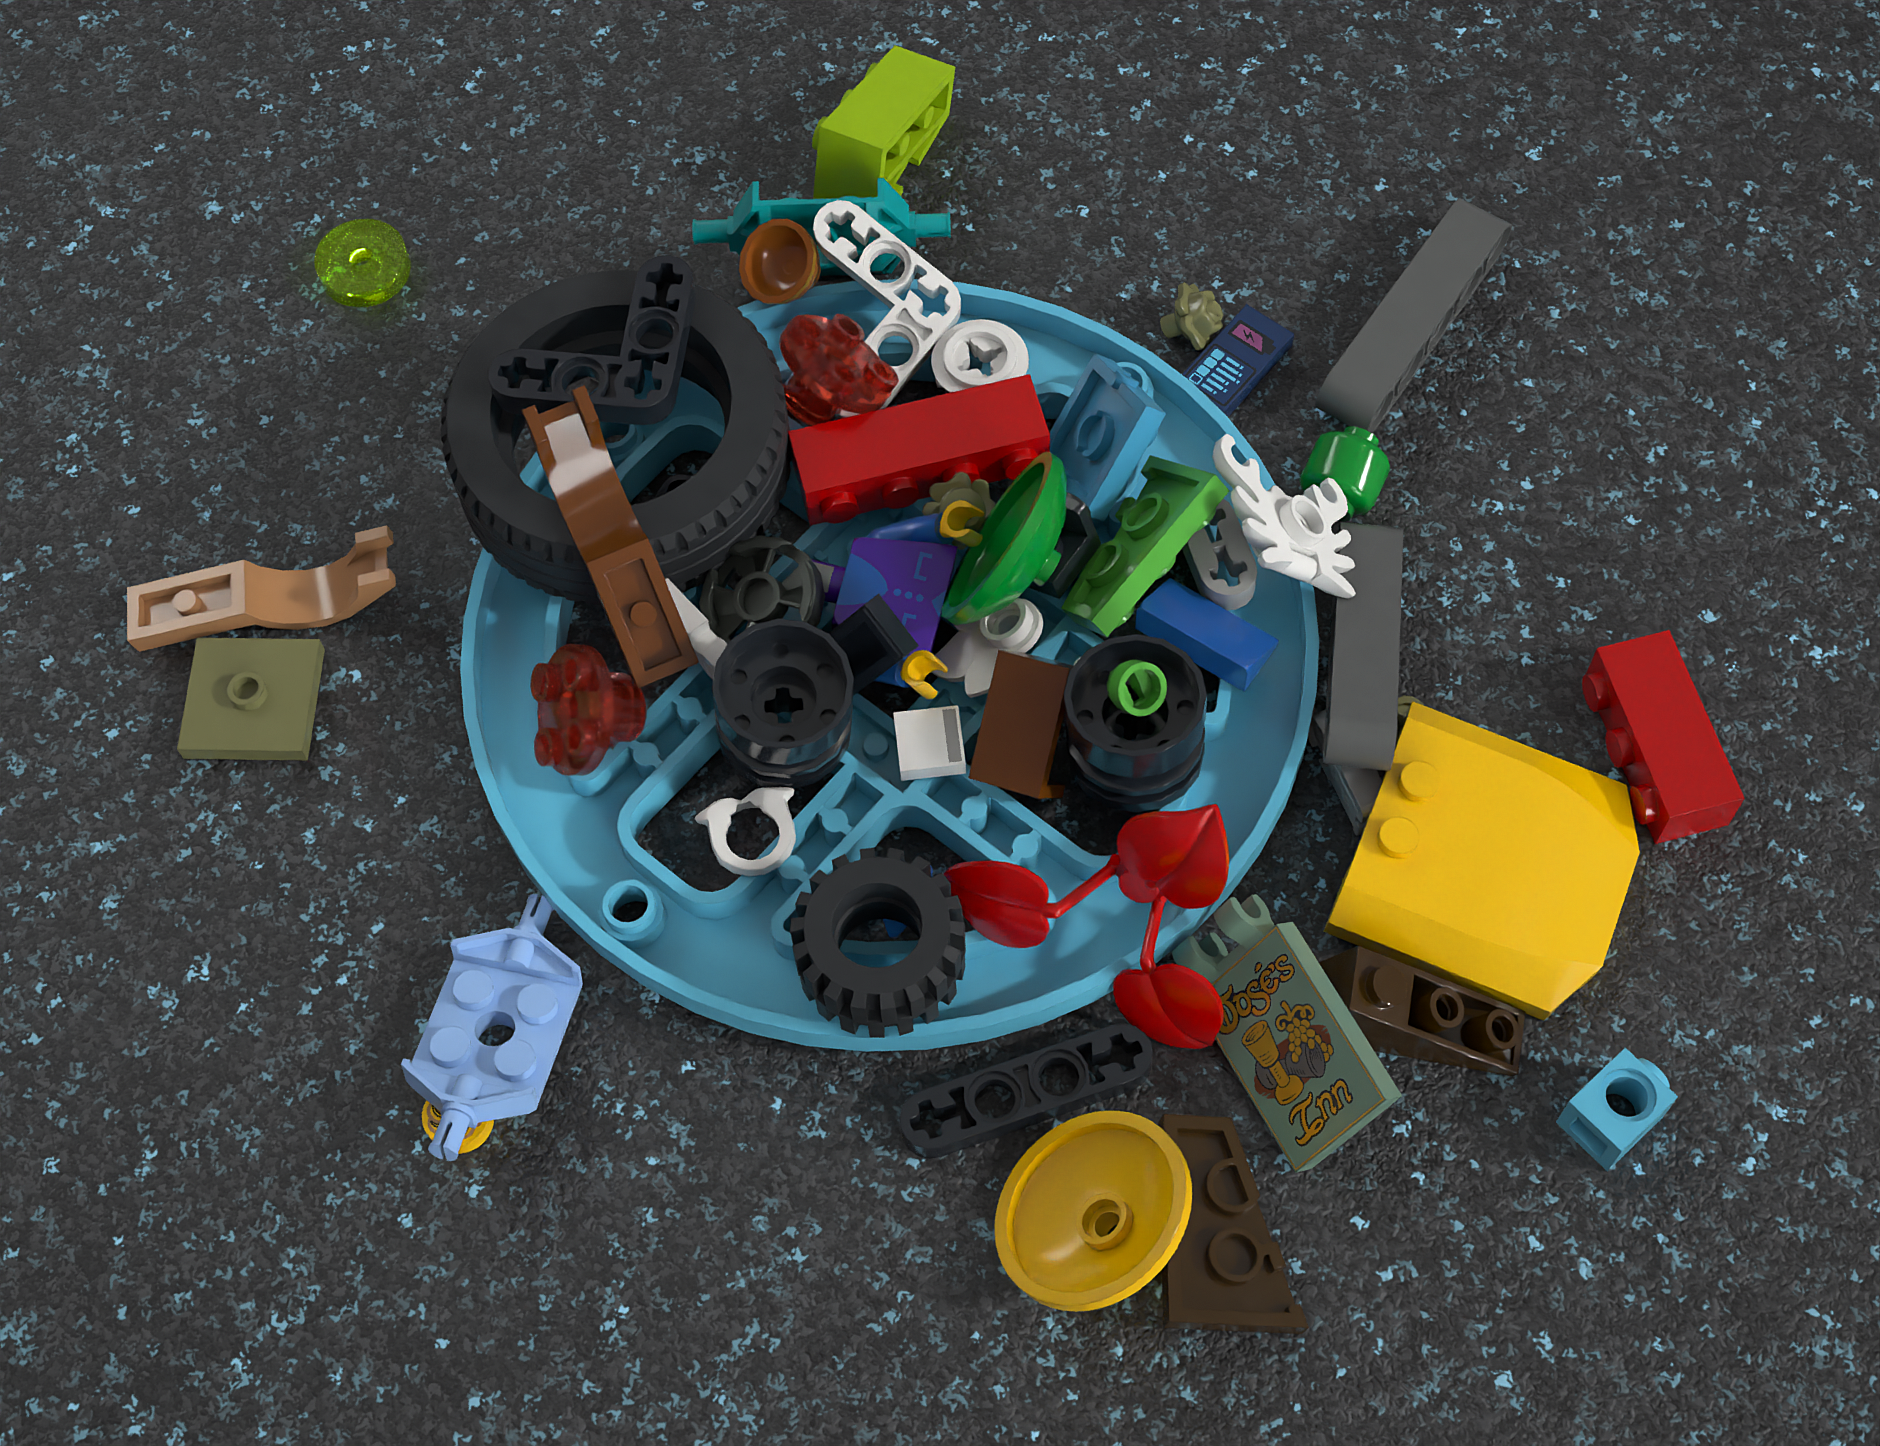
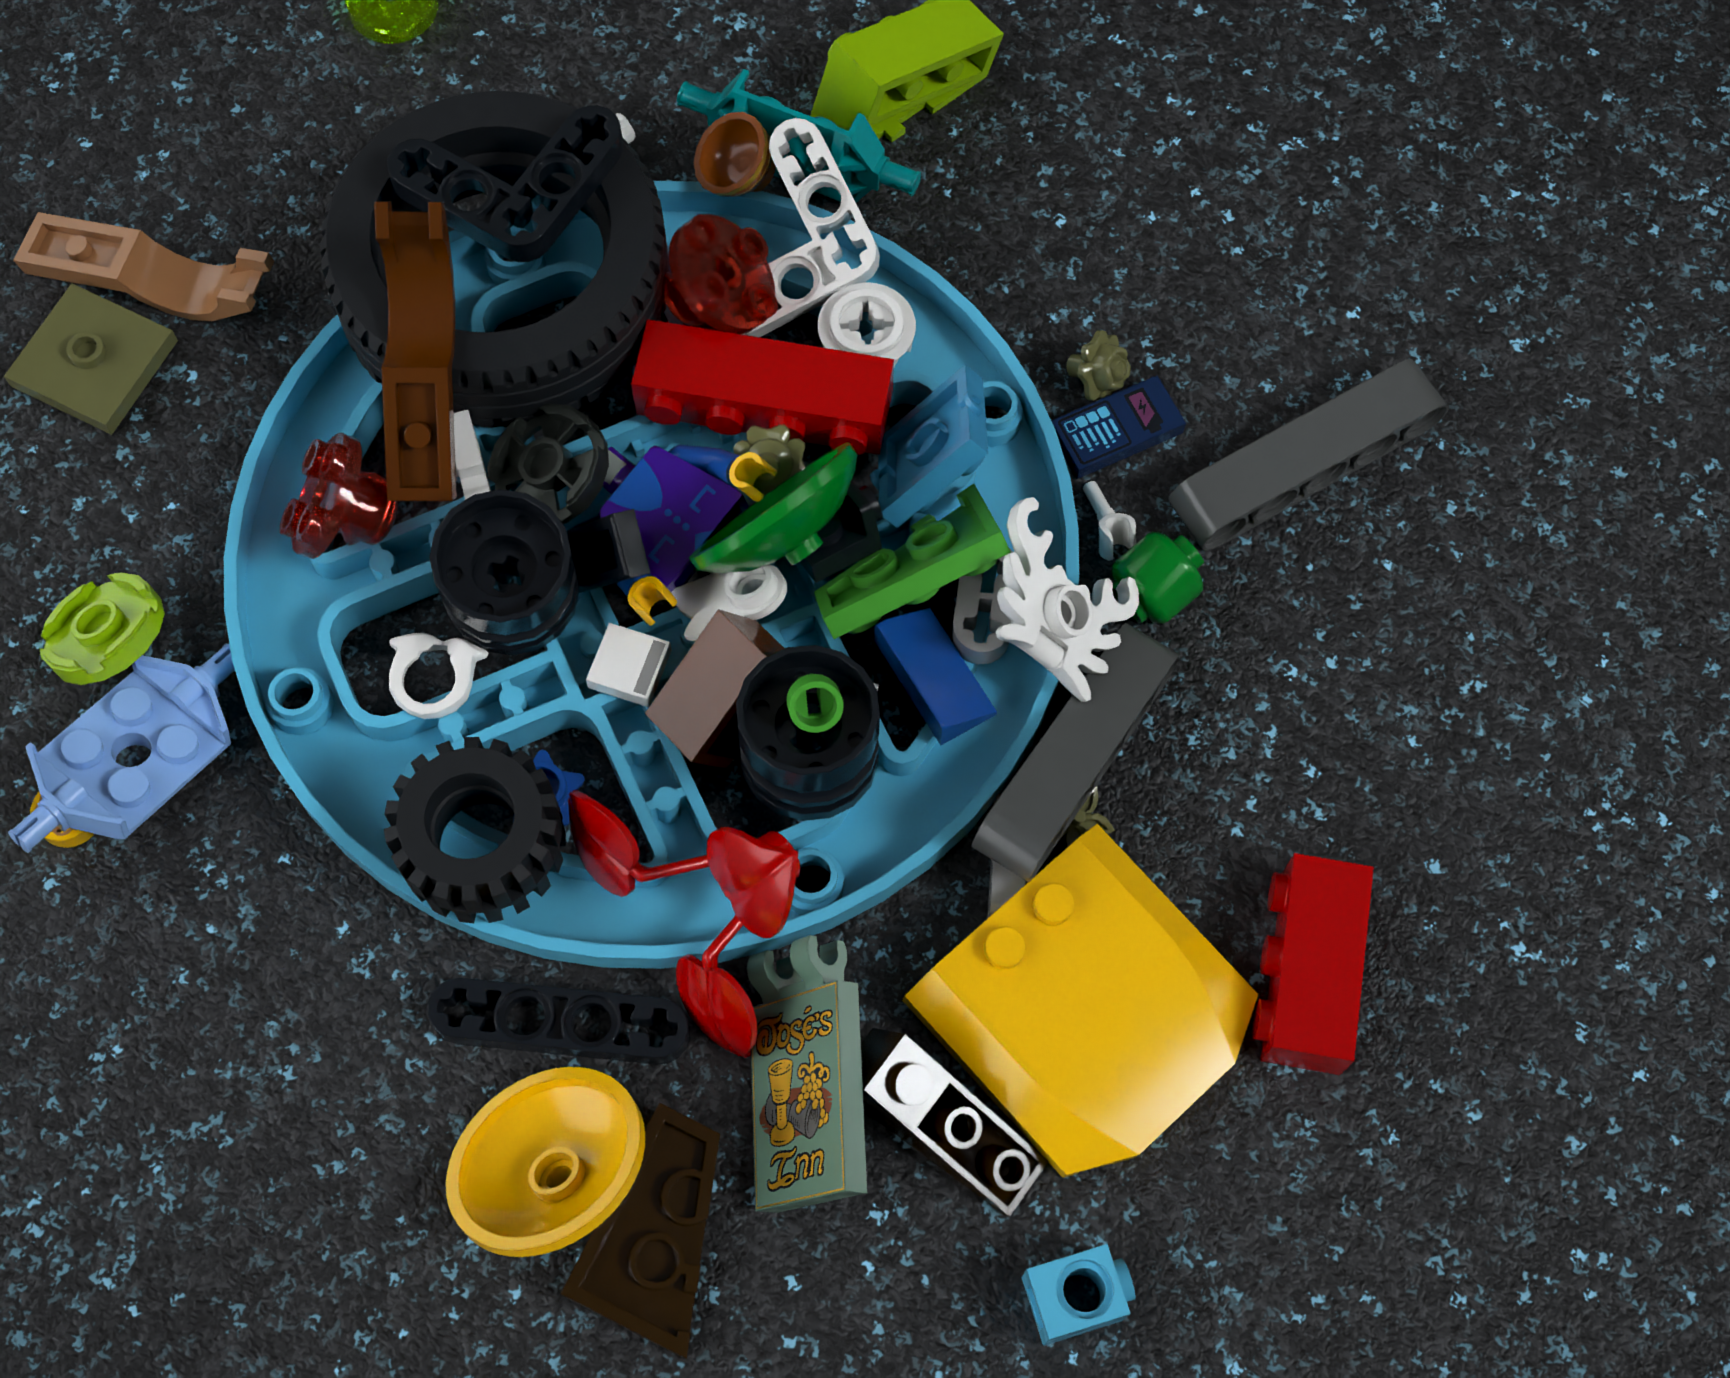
camera: 20 degrees right, 5 degrees up
(405, 933) = (101, 629): none -> lime tile
(1283, 447) = (1113, 527): none -> white hand

